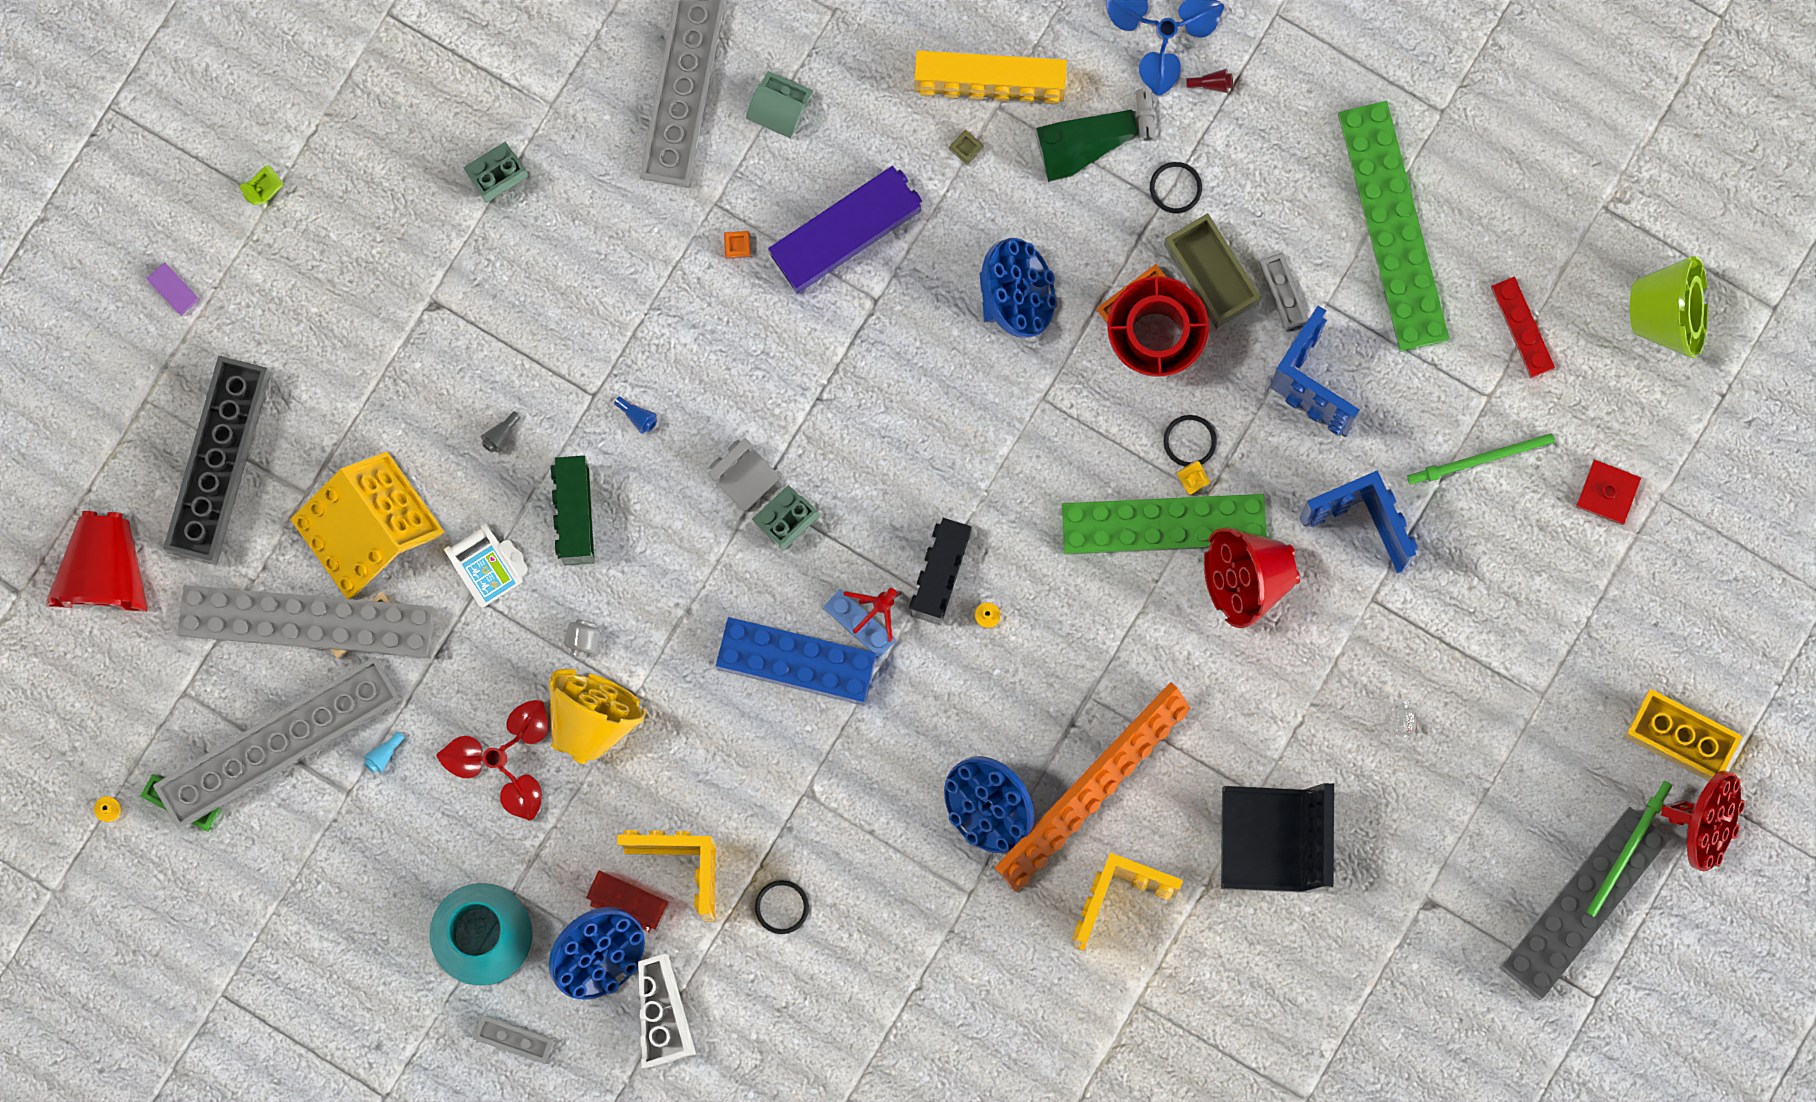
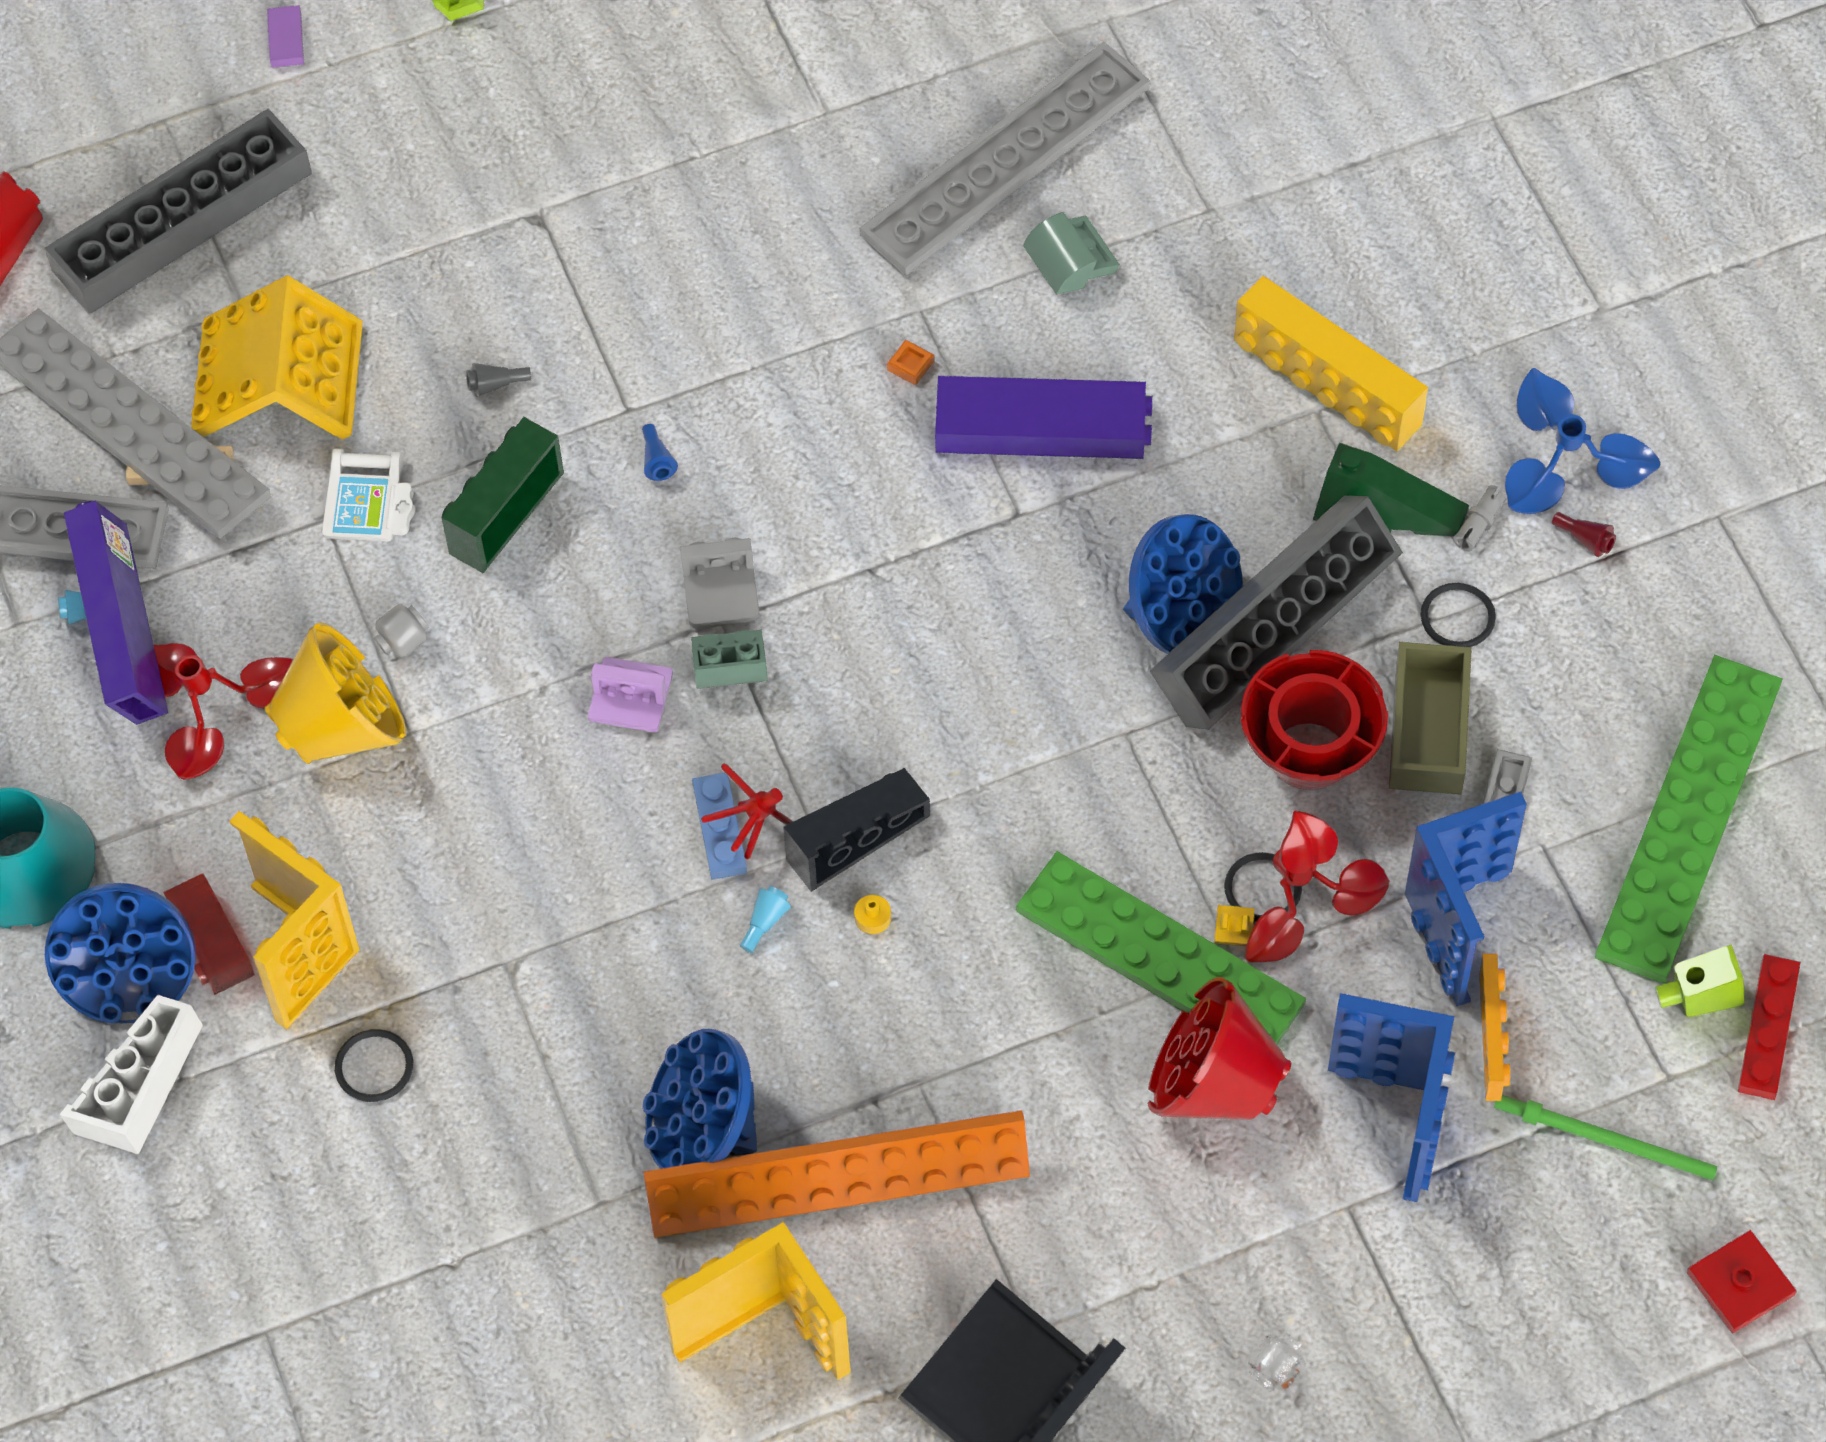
camera: 35 degrees right, 20 degrees down
(413, 751) = (115, 612): none -> dark purple brick
(496, 172) = (710, 132): sand green brick -> none
(745, 580) = (629, 694): none -> lavender bracket
(796, 661) = (613, 812): blue brick -> none
(929, 658) = (768, 909): none -> medium azure cone
(966, 147) = (1246, 426): olive tile -> none
(1080, 266) = (1276, 611): none -> dark grey brick
(1213, 422) = (1304, 846): none -> red plant
(1386, 448) = (1494, 1040): none -> light orange plate
(1480, 321) = (1705, 983): none -> lime torso

